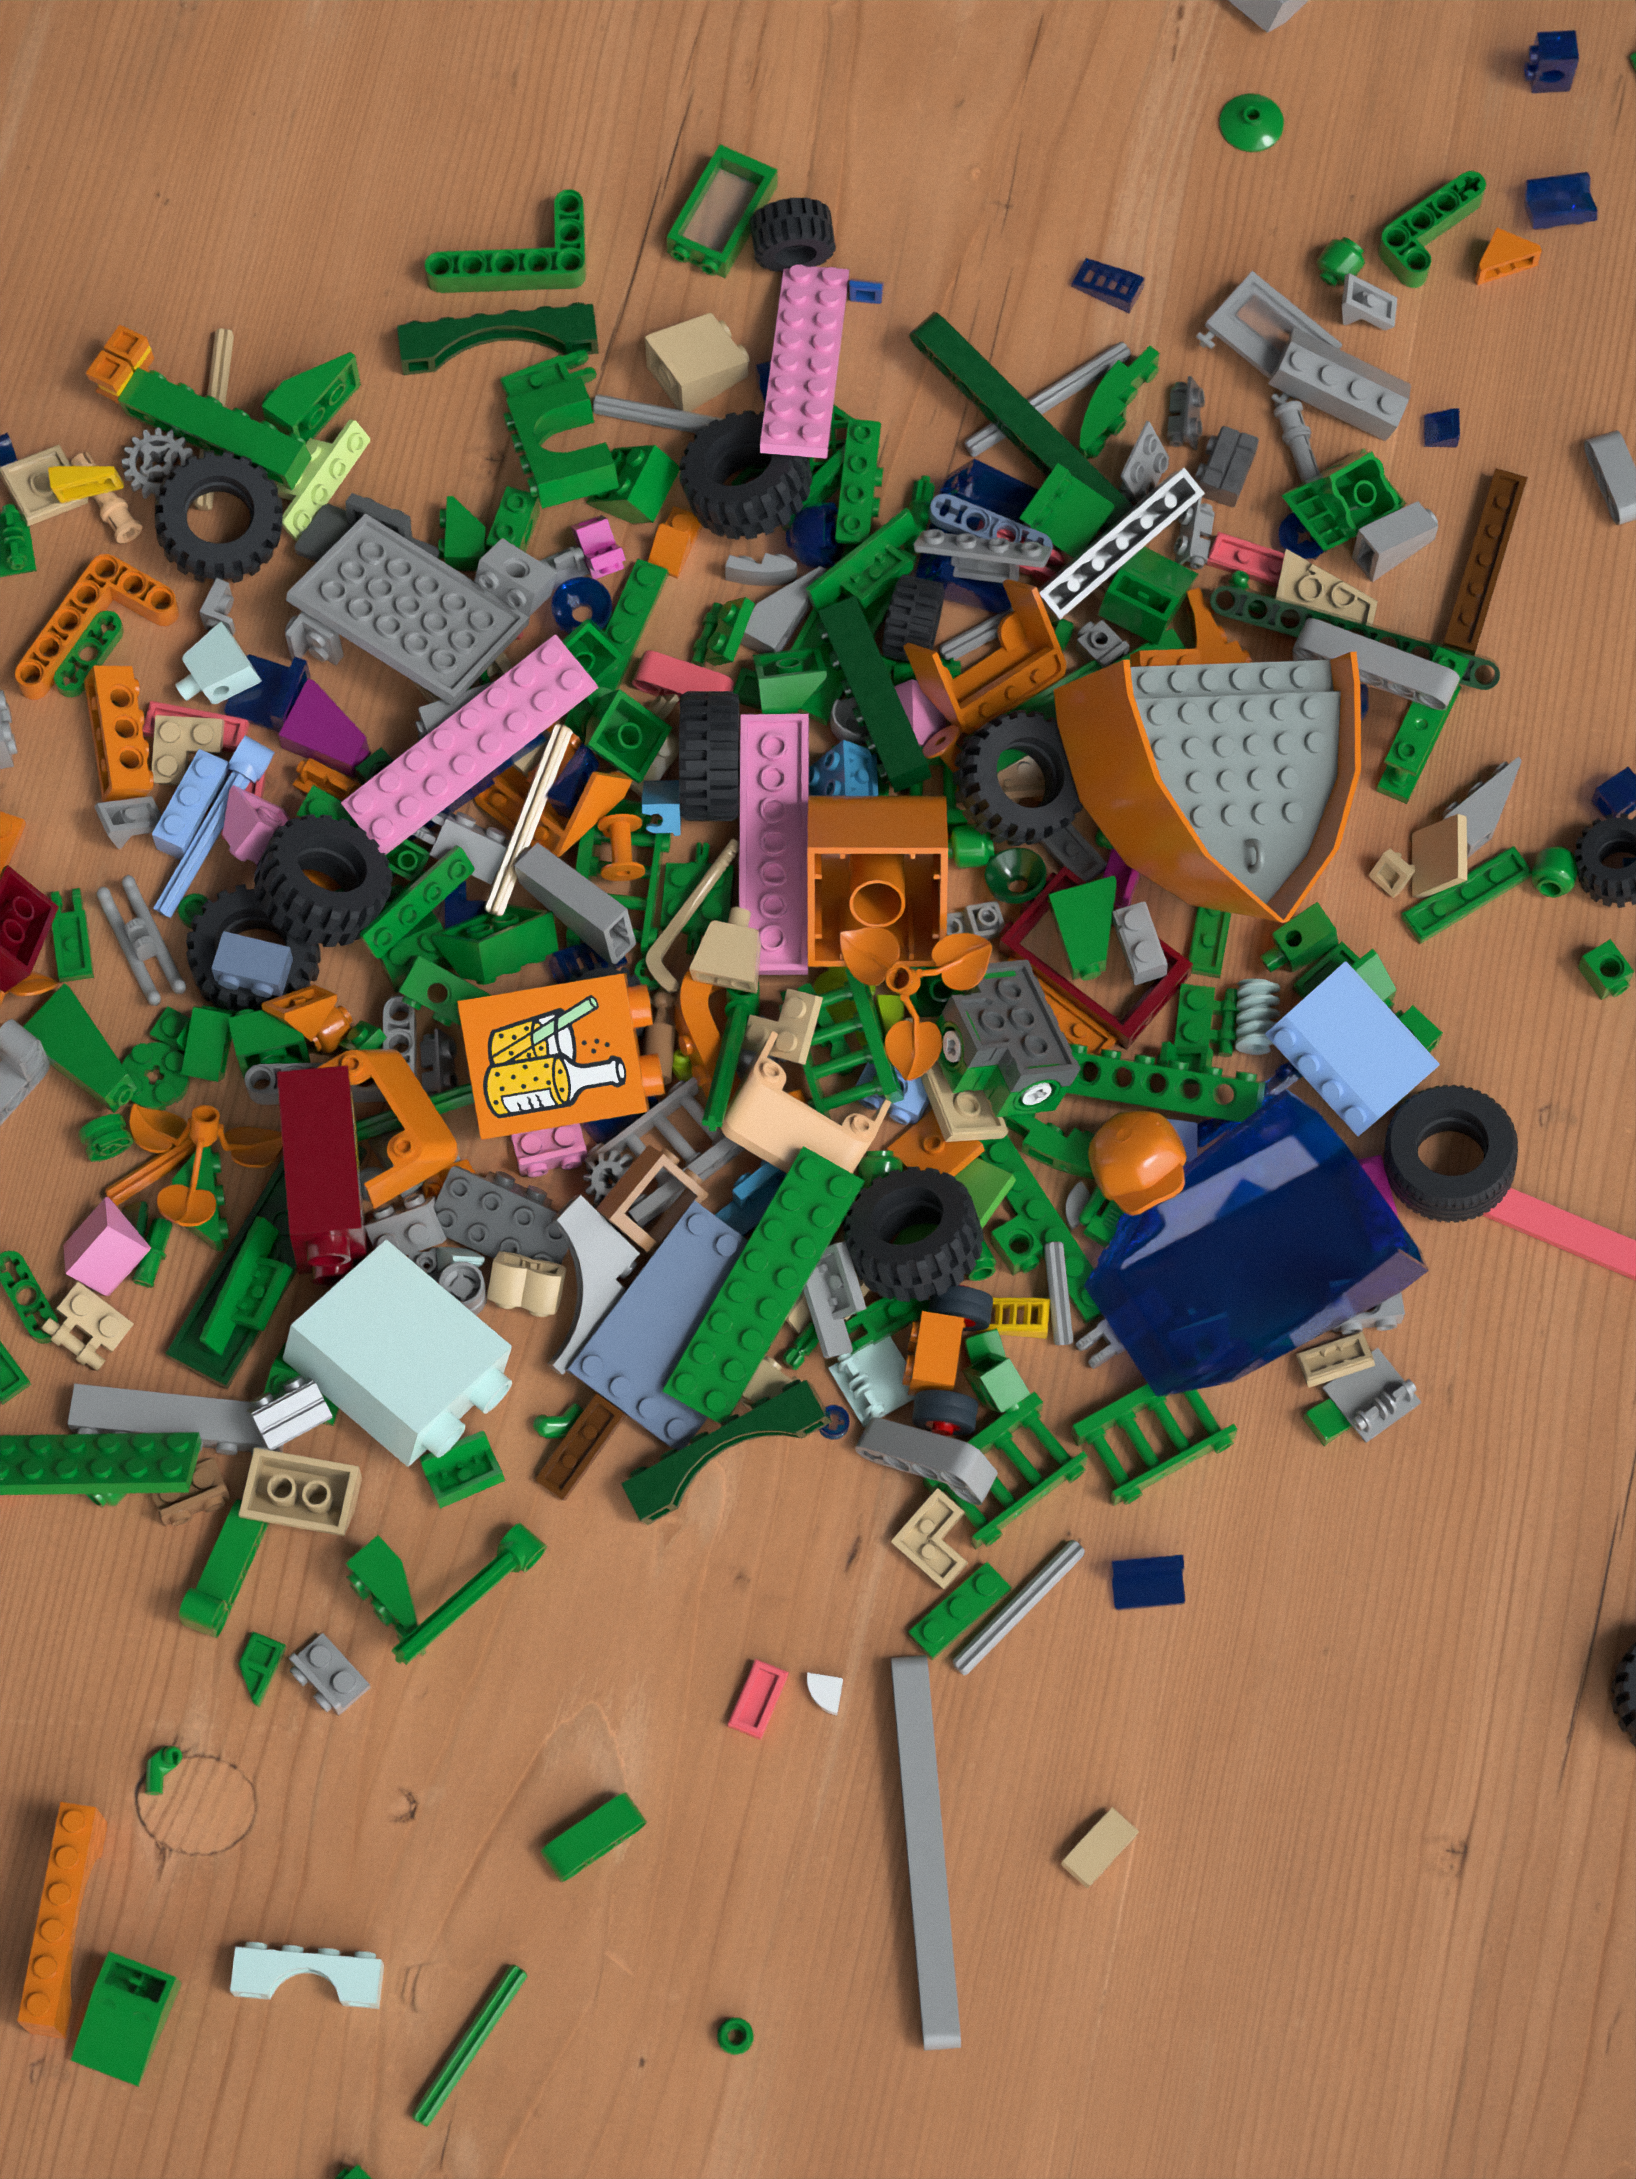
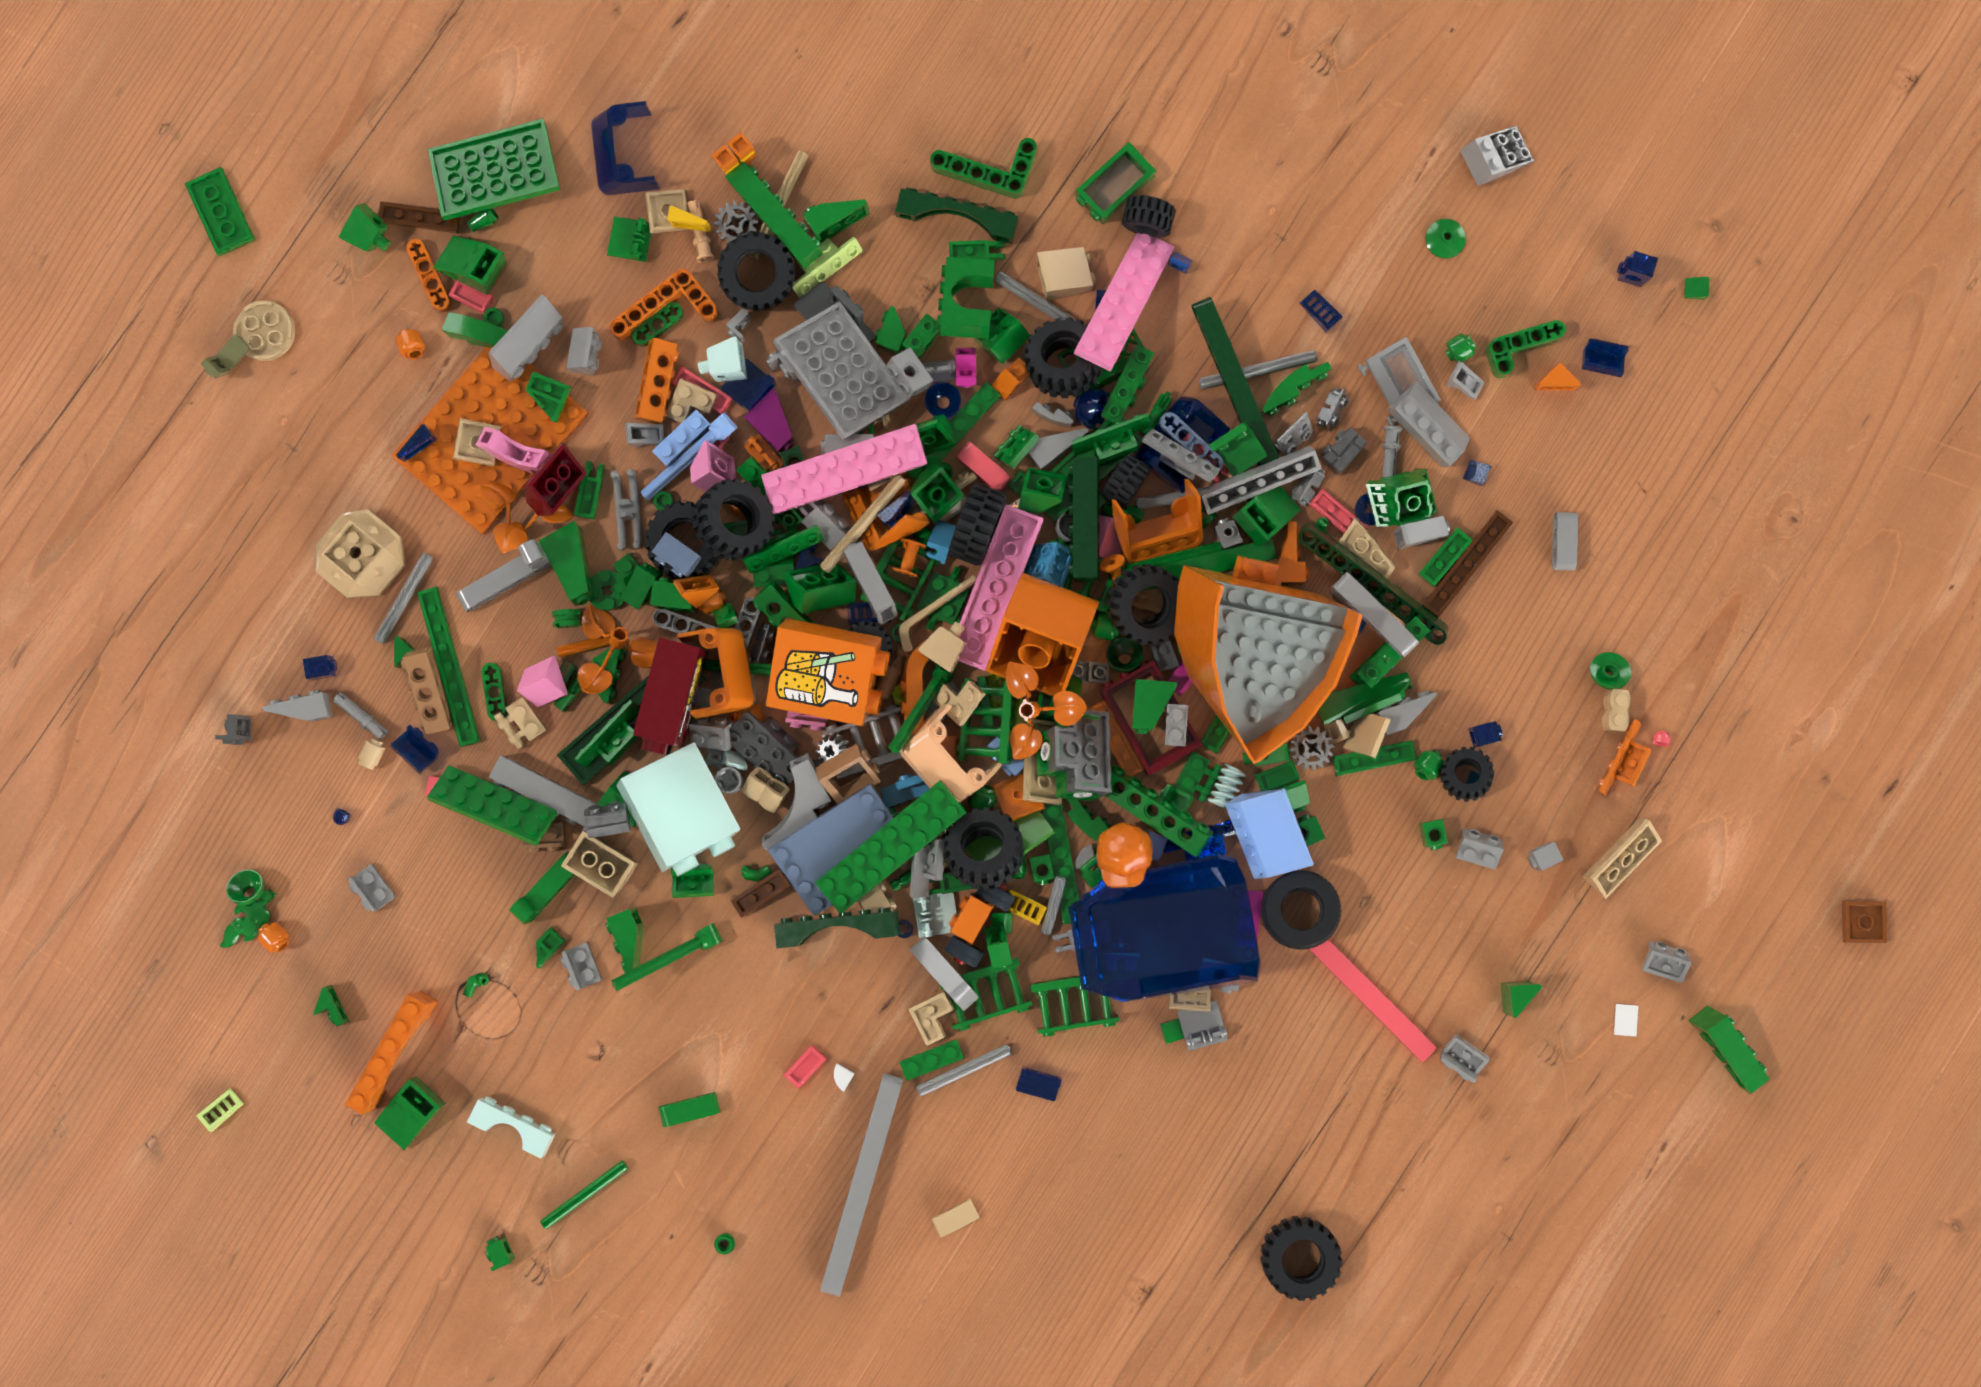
camera: 25 degrees right, 15 degrees up
(1377, 916) = (1322, 756): none -> light grey gear
(1409, 811) = (1362, 700): none -> green wedge
(1447, 564) = (1445, 557): none -> green plate

